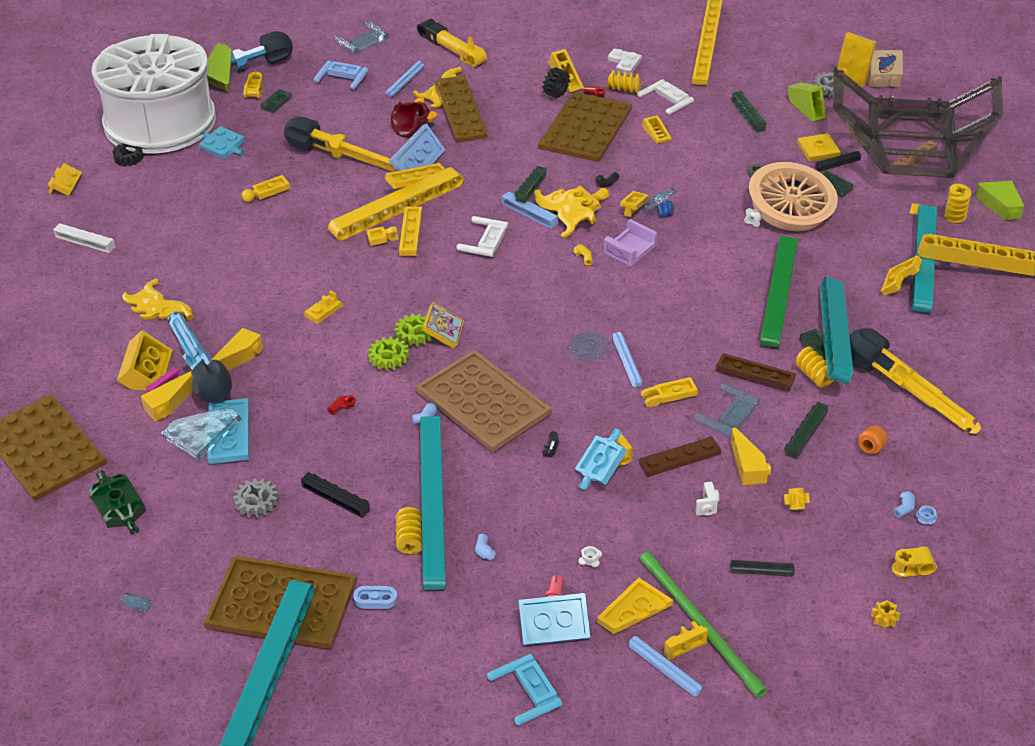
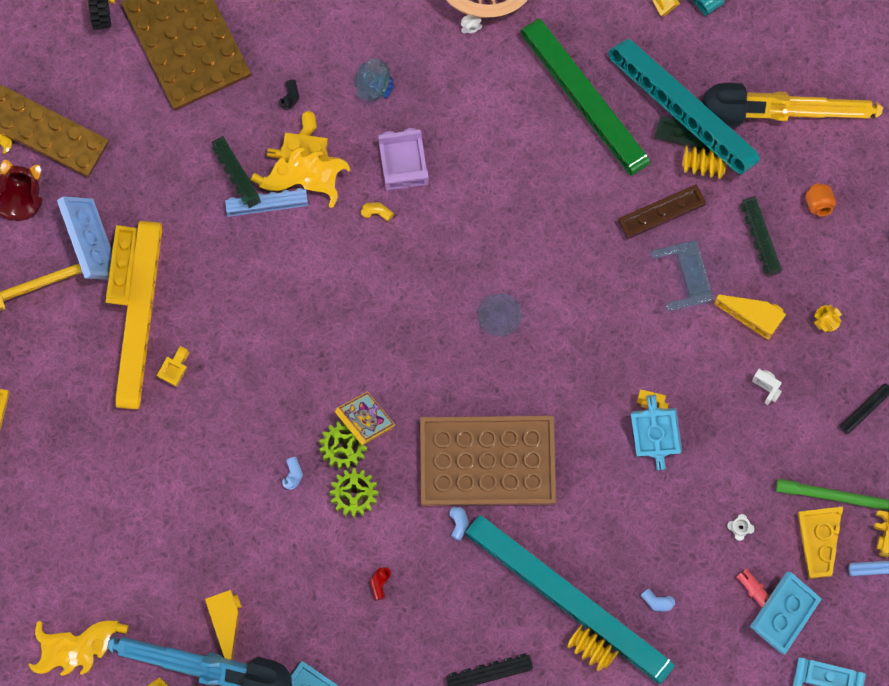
camera: 50 degrees left, 30 degrees up
(323, 308) = (230, 500): yellow plate -> none
(372, 324) = (295, 474): none -> light blue arm
(410, 231) = (193, 334): yellow plate -> none
(490, 238) = (275, 271): white plate -> none
(553, 444) = (597, 455): black arm -> none
(627, 360) = (547, 298): light blue axle -> none
(633, 202) = (350, 104): yellow plate -> none
(669, 392) = (621, 299): yellow hinge -> none
(679, 456) = (697, 360): reddish brown plate -> none

